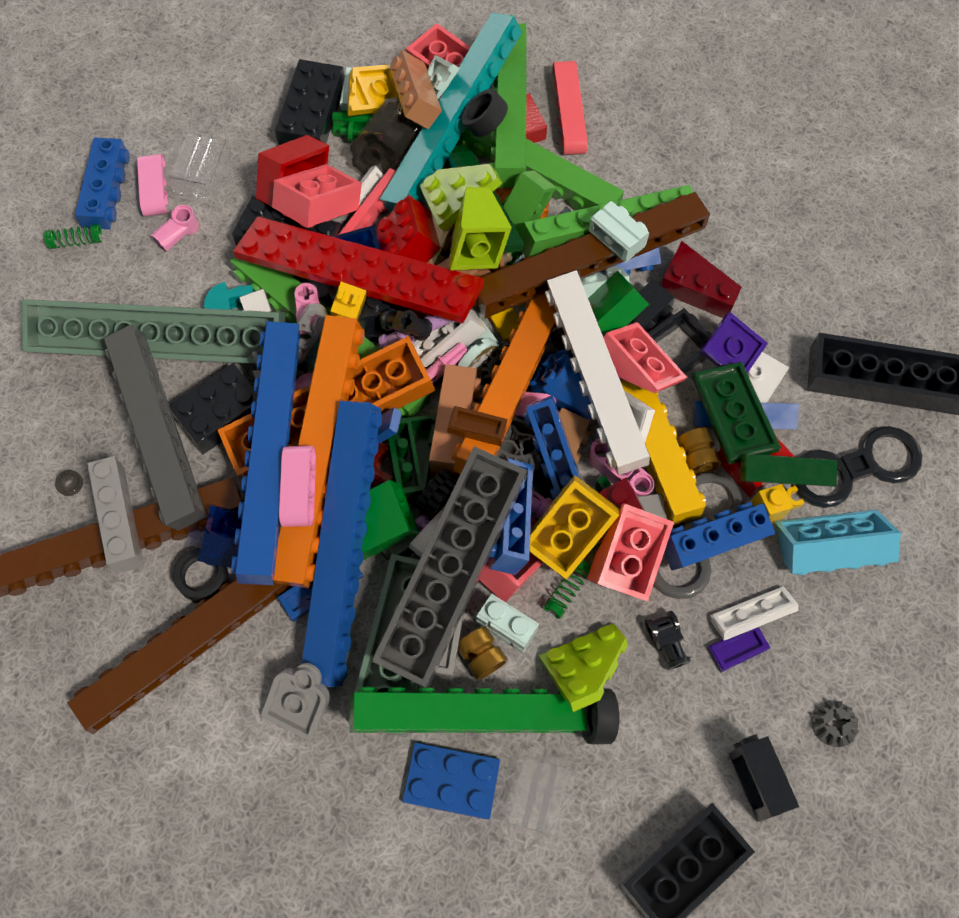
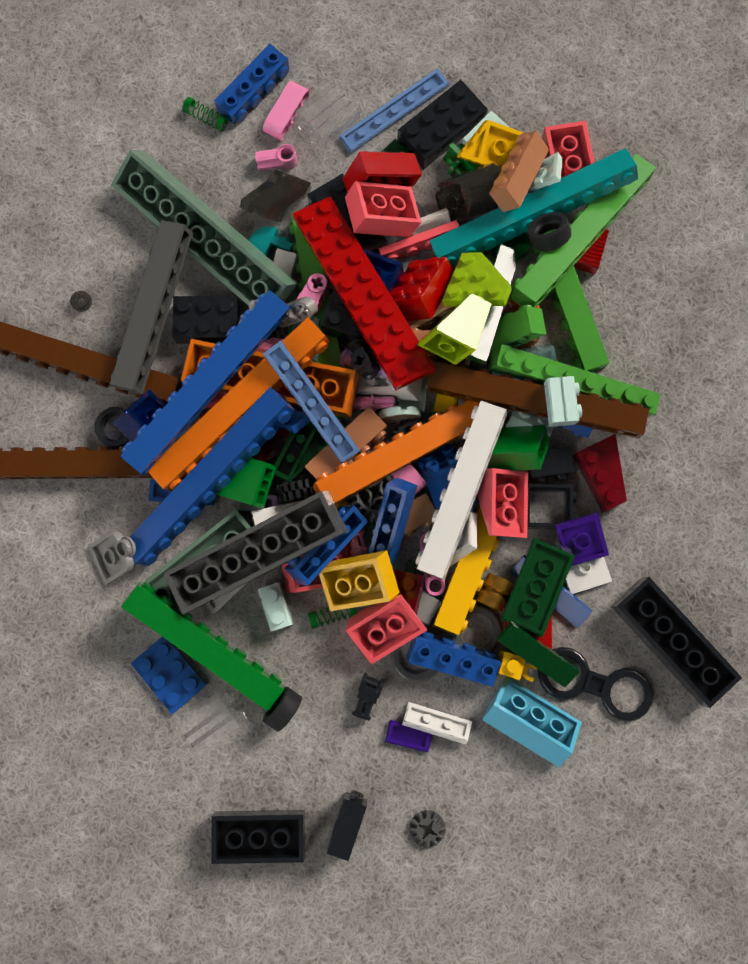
camera: 40 degrees right, 15 degrees up
(115, 515) = (87, 351): light grey brick -> none
(202, 254) = (276, 195): none -> clear smoke brick
(255, 127) = (394, 111): none -> medium blue tile
(297, 486) = (202, 424): bright pink beam -> none
(348, 301) = (332, 317): yellow brick -> none
(384, 387) = (311, 401): none -> medium blue tile
(477, 425) = (346, 471): reddish brown tile -> none
(481, 652) = (245, 613): pearl gold wheel -> none
(570, 107) = (632, 261): coral beam -> none
(585, 665) = (299, 671): lime plate -> none

